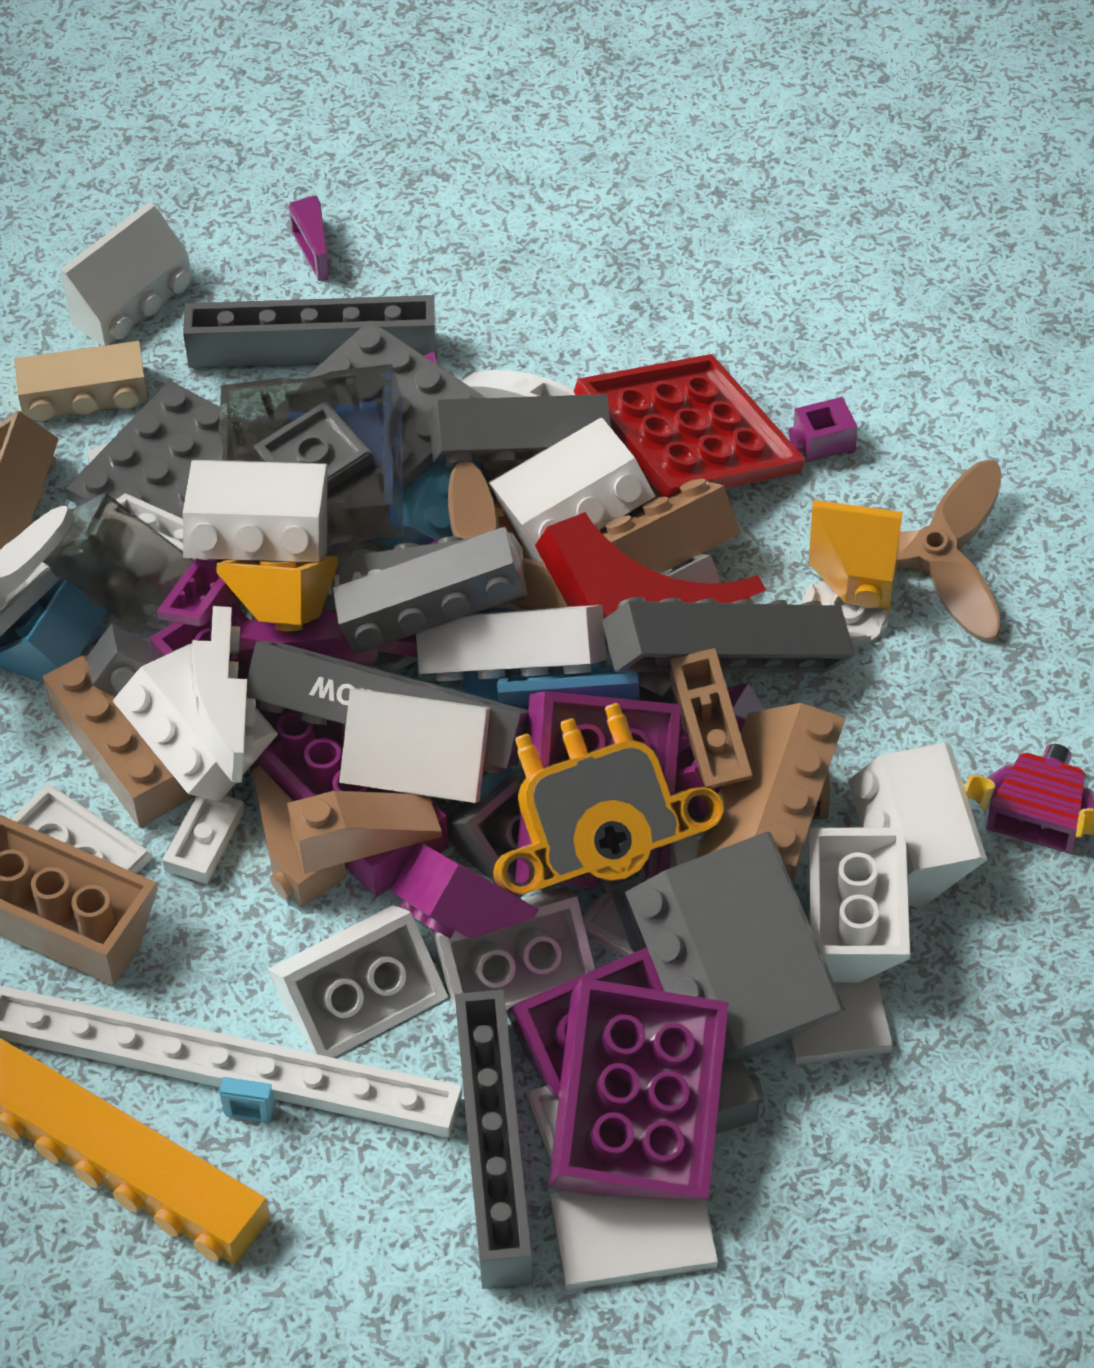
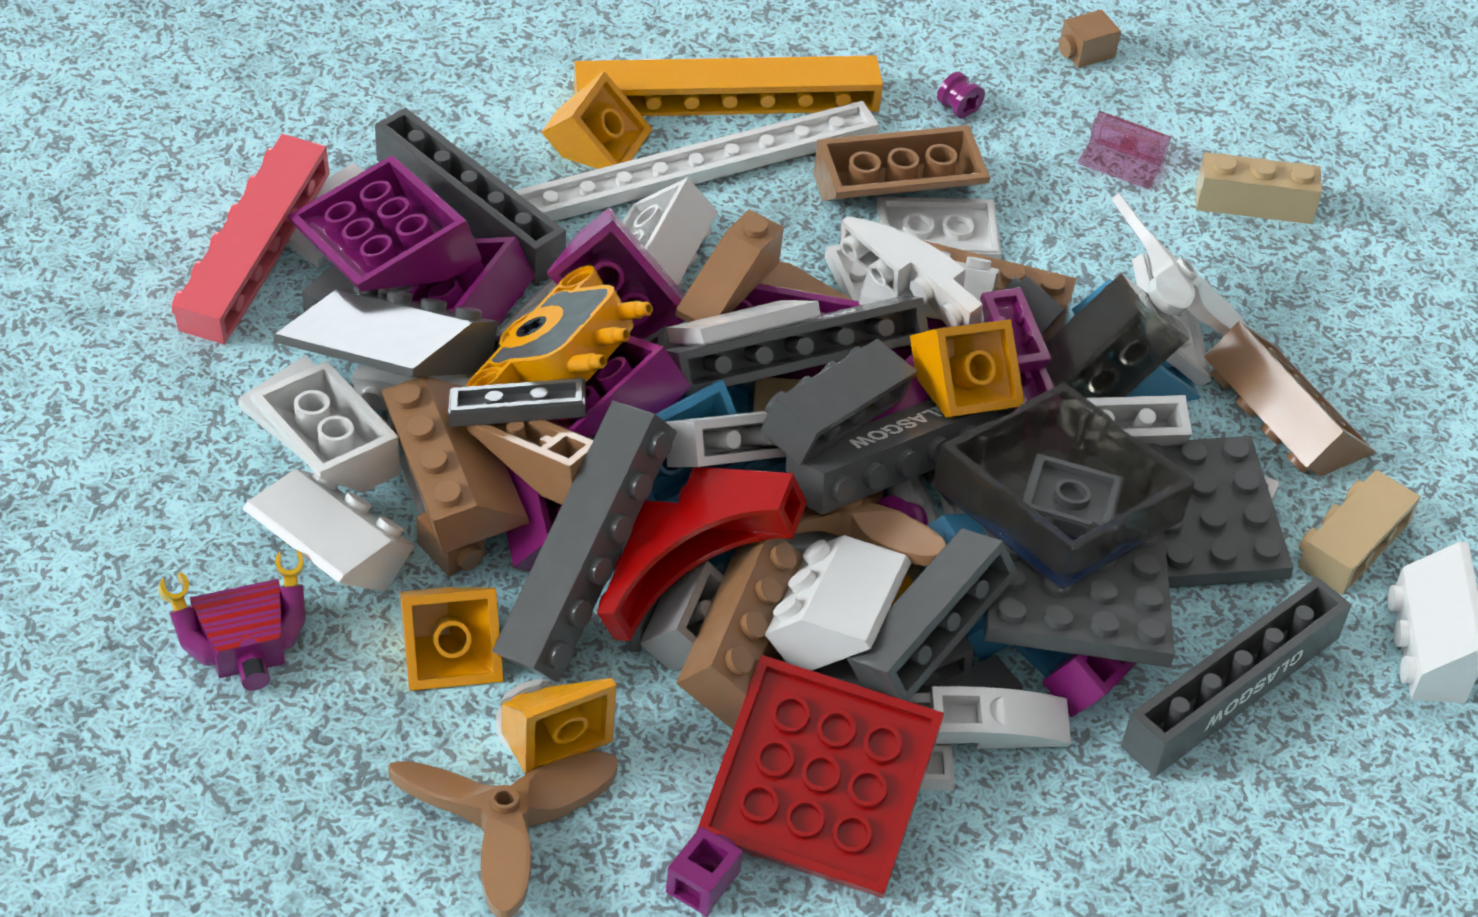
camera: 135 degrees right, 5 degrees down
(247, 1099) = (652, 142): medium azure tile -> none
(255, 511) = (1026, 371): white slope -> none
(284, 1159) = (597, 126): none -> light orange slope
(309, 232) = (1359, 785): magenta slope -> none
(699, 756) = (517, 402): none -> dark grey tile
(752, 1217) = (250, 240): none -> coral brick
(874, 704) = (450, 637): none -> light orange slope

